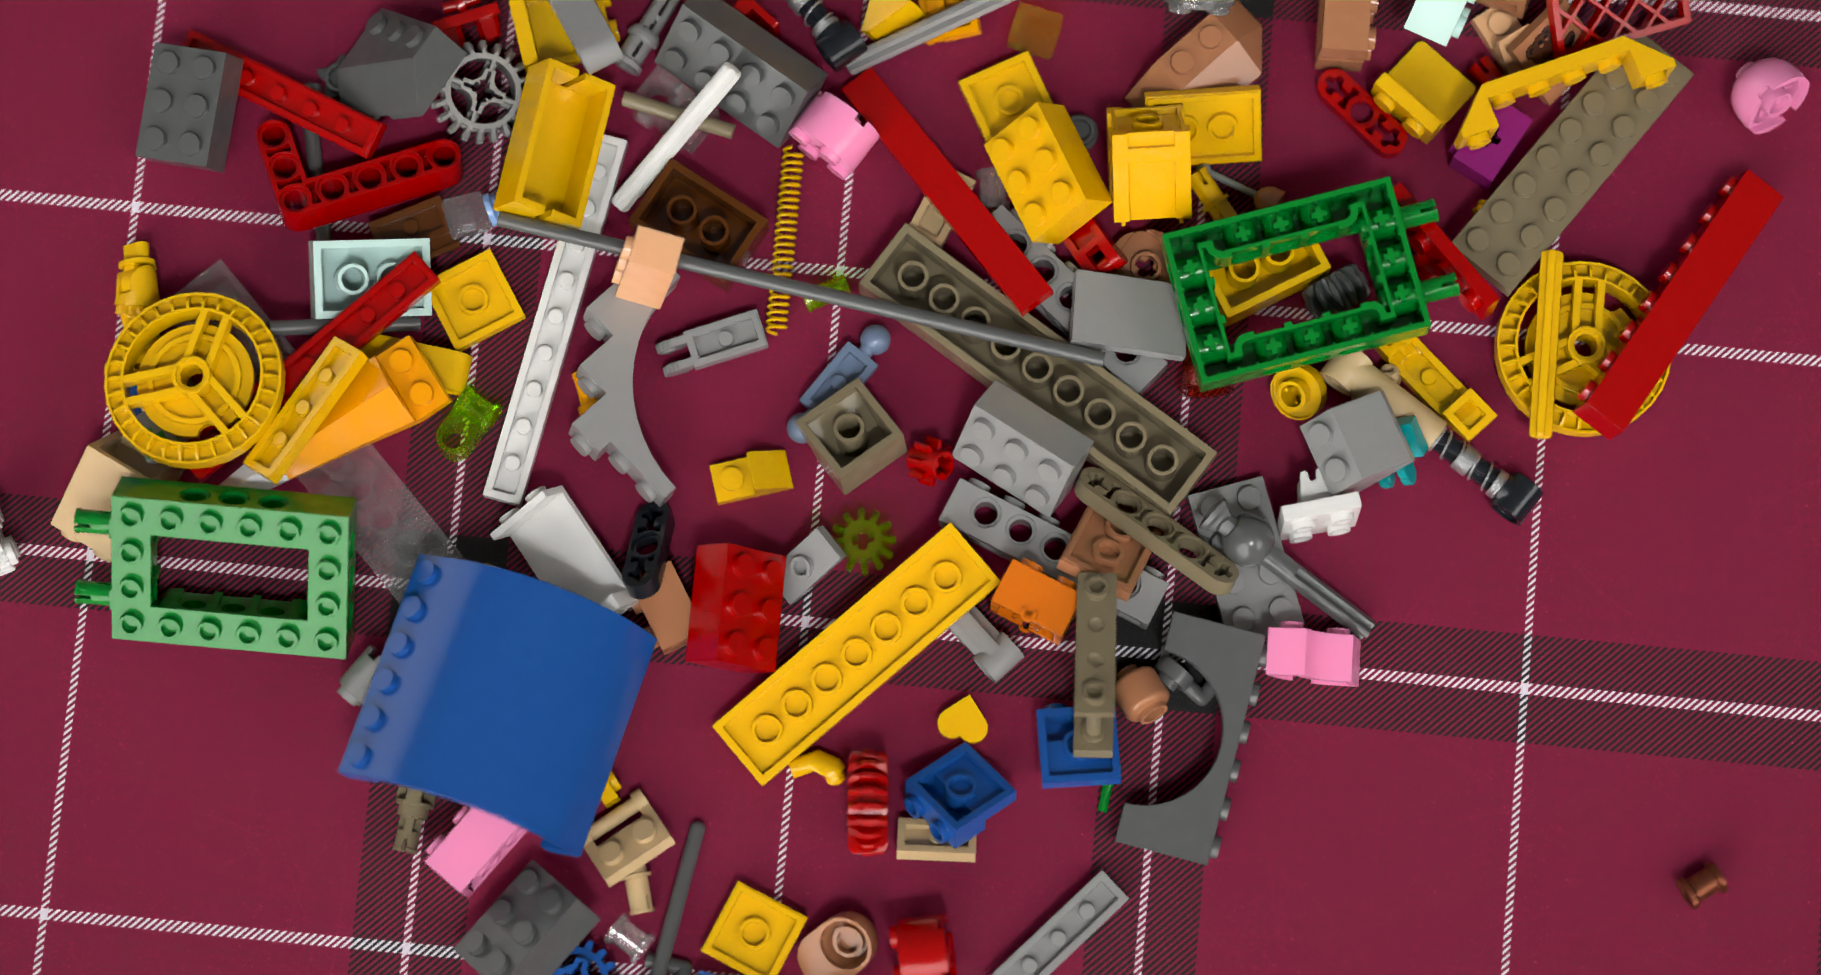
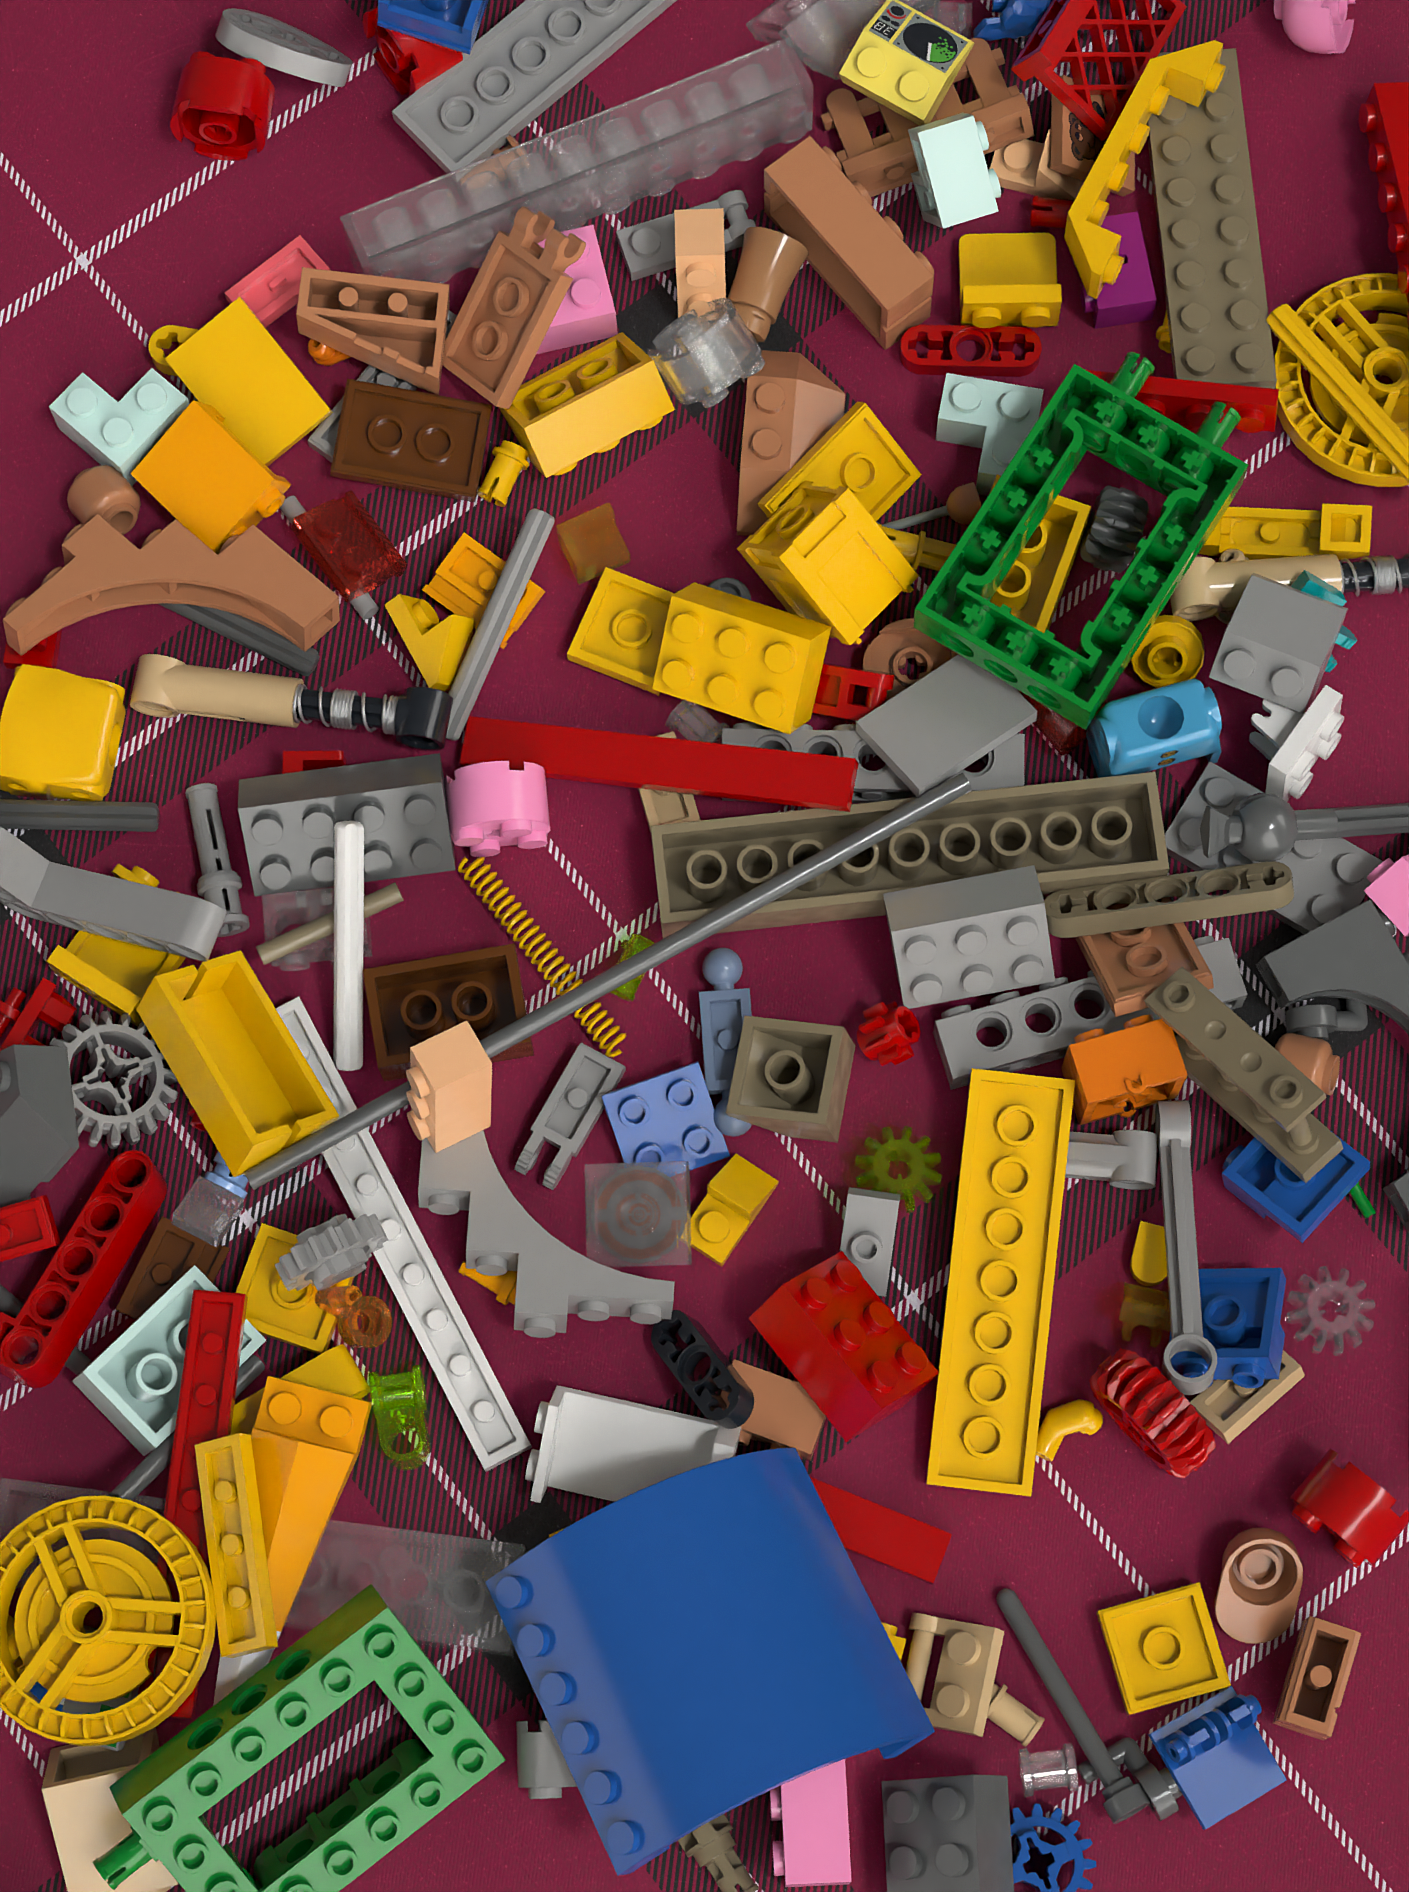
camera: 40 degrees left, 5 degrees down
(491, 337) = (346, 1305): none -> clear orange plate
(506, 299) = (331, 1252): none -> light grey gear
(663, 728) = (884, 1533): none -> red tile
(697, 433) = (638, 1213): none -> clear tile
(759, 398) = (666, 1119): none -> hinge
(924, 744) = (1147, 1308): none -> clear yellow tile
(1027, 670) = (1174, 1144): none -> light grey piece
(1029, 828) = (1343, 1326): none -> clear gear
(1242, 429) = (1155, 729): none -> dark azure piece
(1328, 158) = (989, 418): none -> light aqua brick

